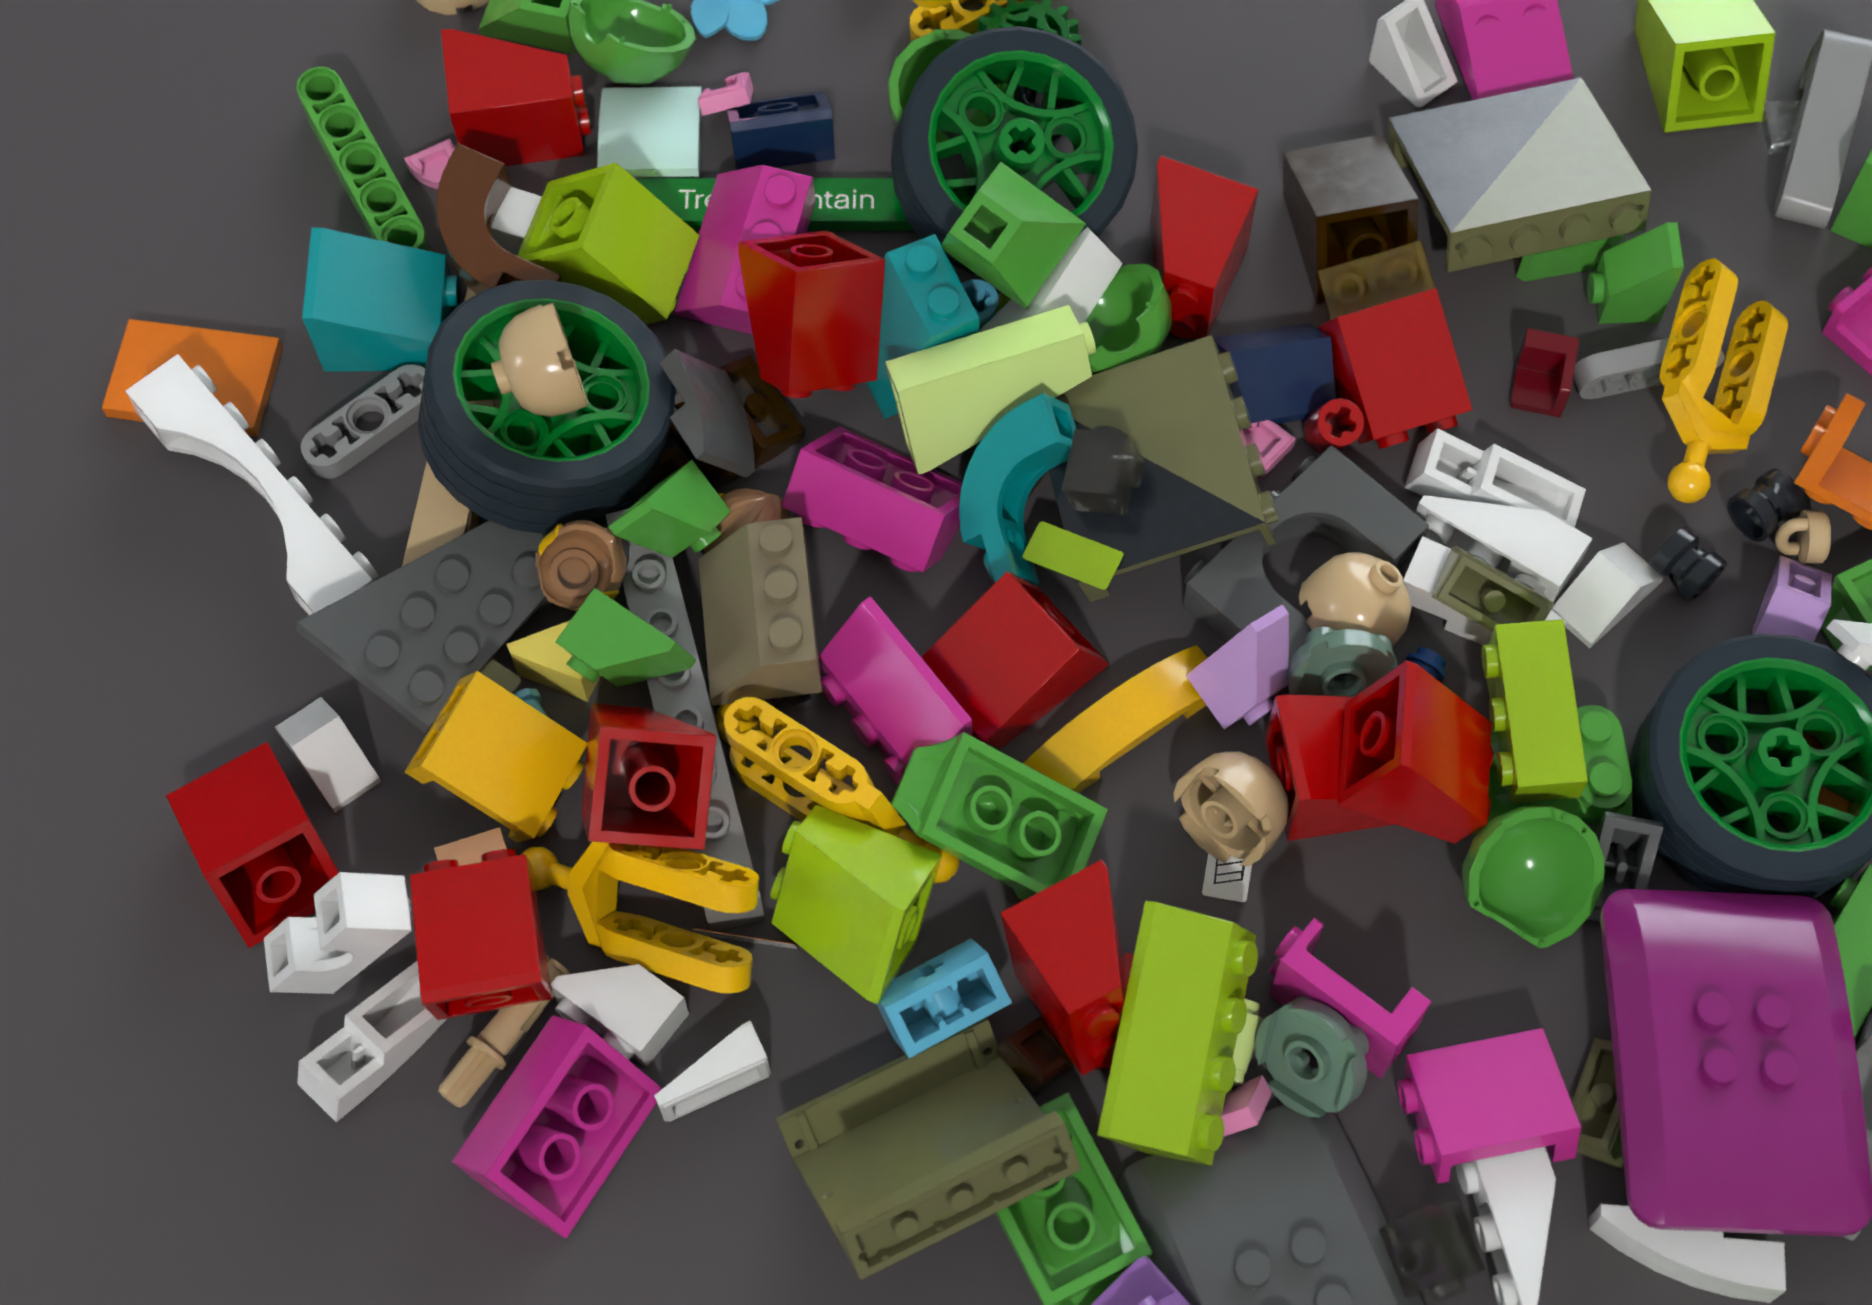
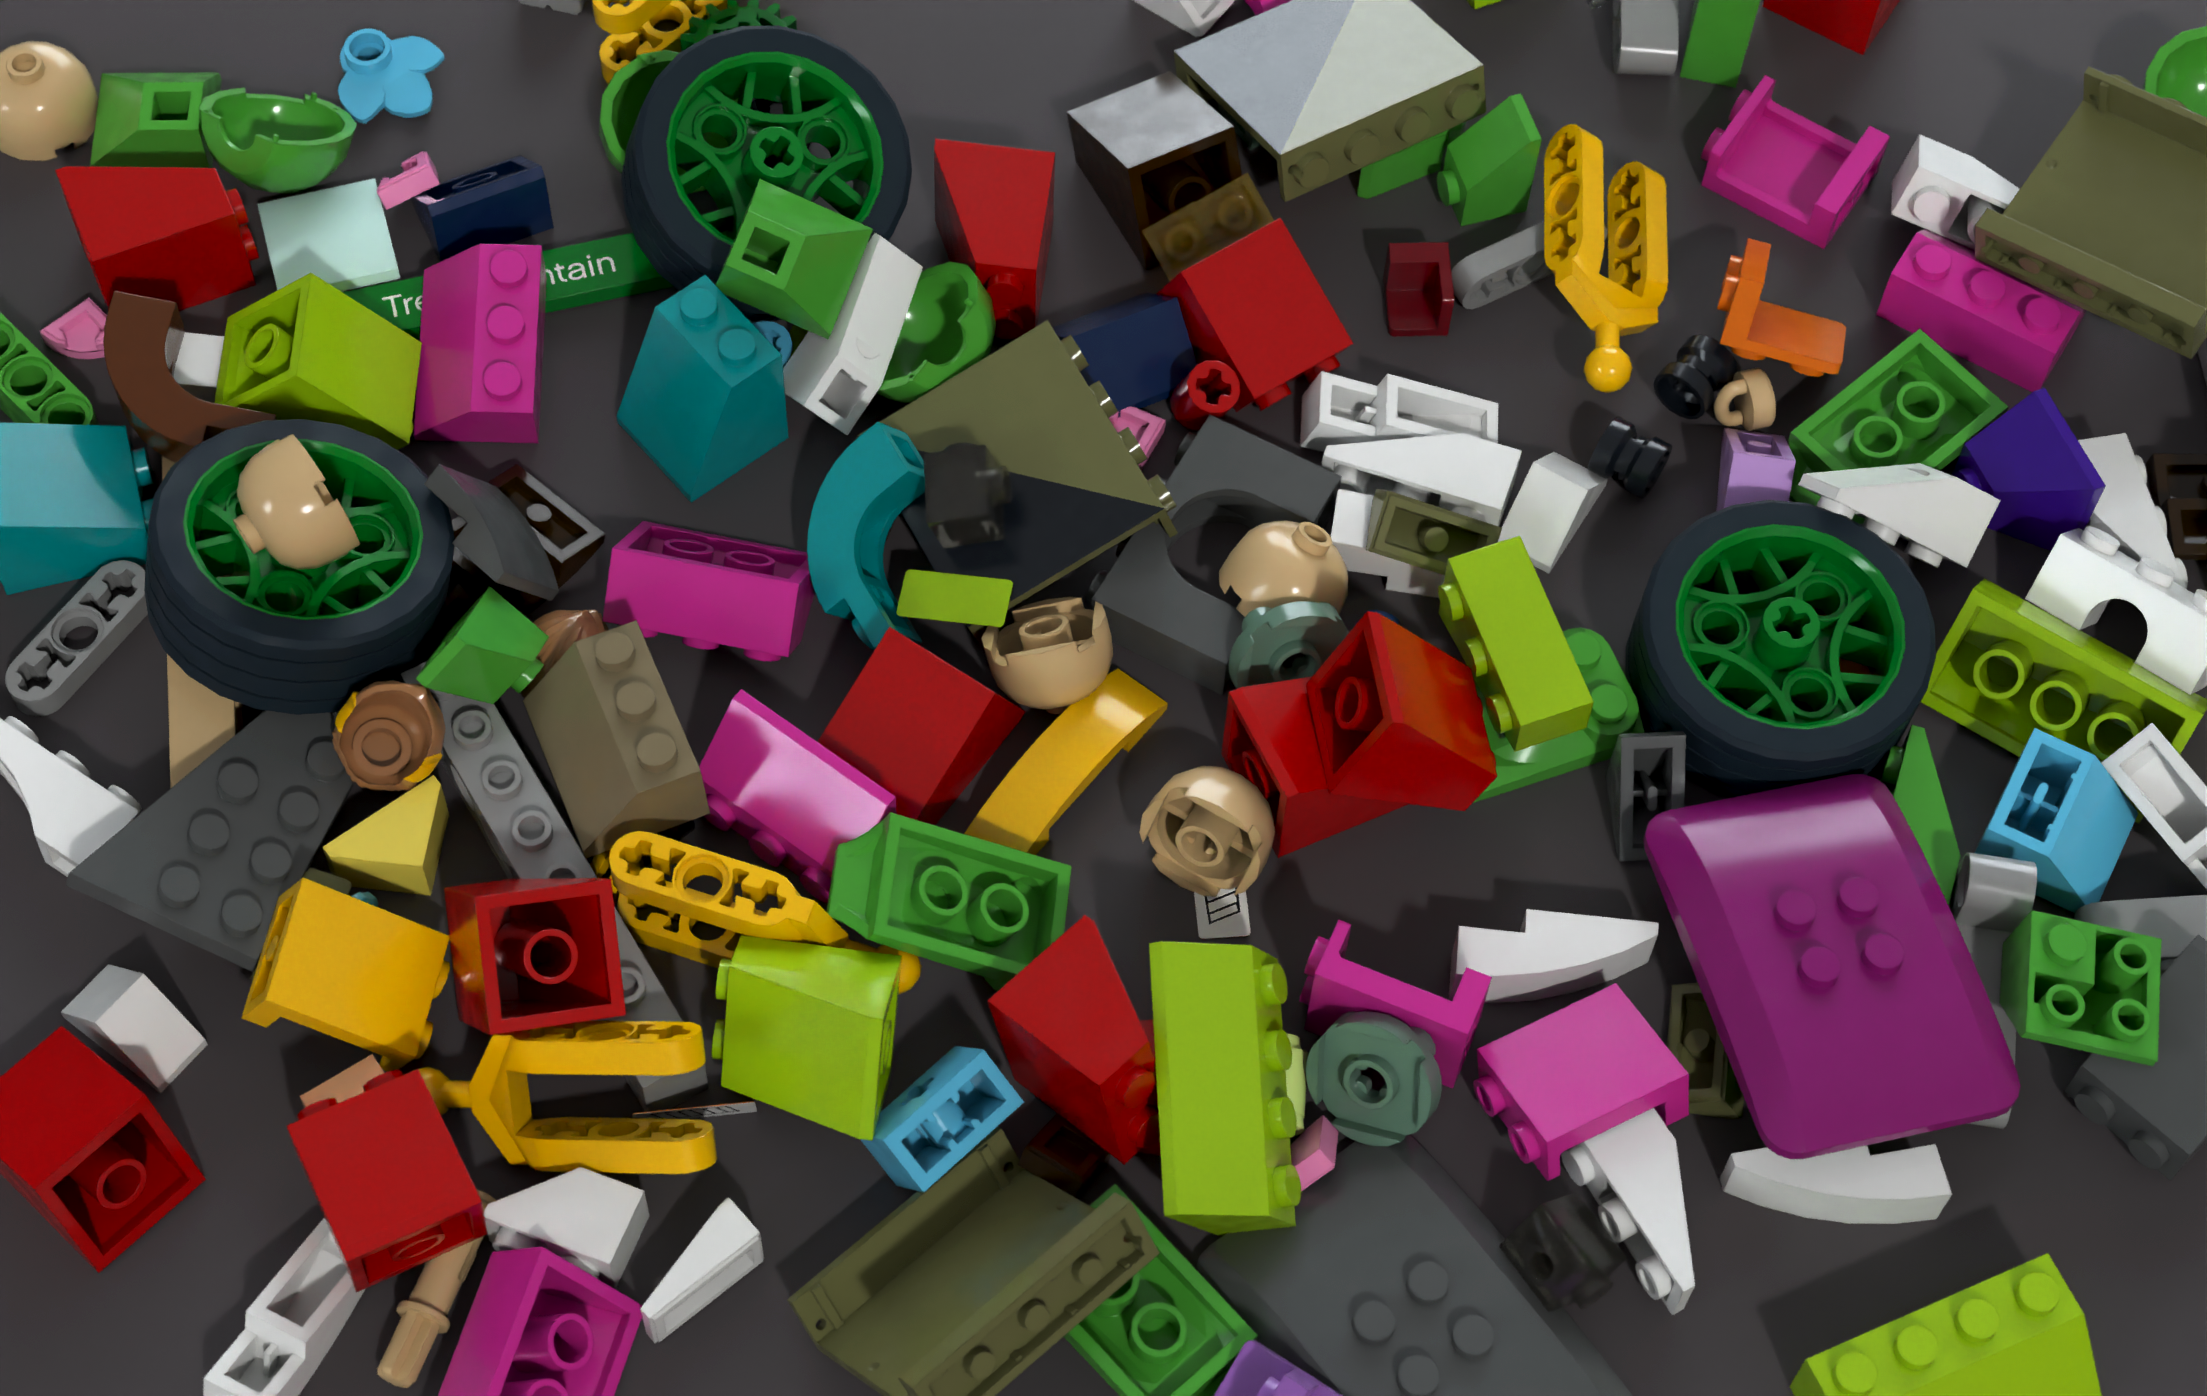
camera: 20 degrees left, 5 degrees down
(353, 926) = (236, 1195): white arch -> none
(619, 644) = (462, 810): bright green slope -> none
(813, 311) = (583, 394): red slope -> none
(965, 386) = (782, 439): yellowish green slope -> none
(1140, 620) = (1050, 653): none -> tan cylinder
(1246, 671) = (1184, 678): lavender slope -> none
(1494, 986) = (1551, 954): none -> white slope
(1535, 873) = (1561, 819): bright green cylinder -> none

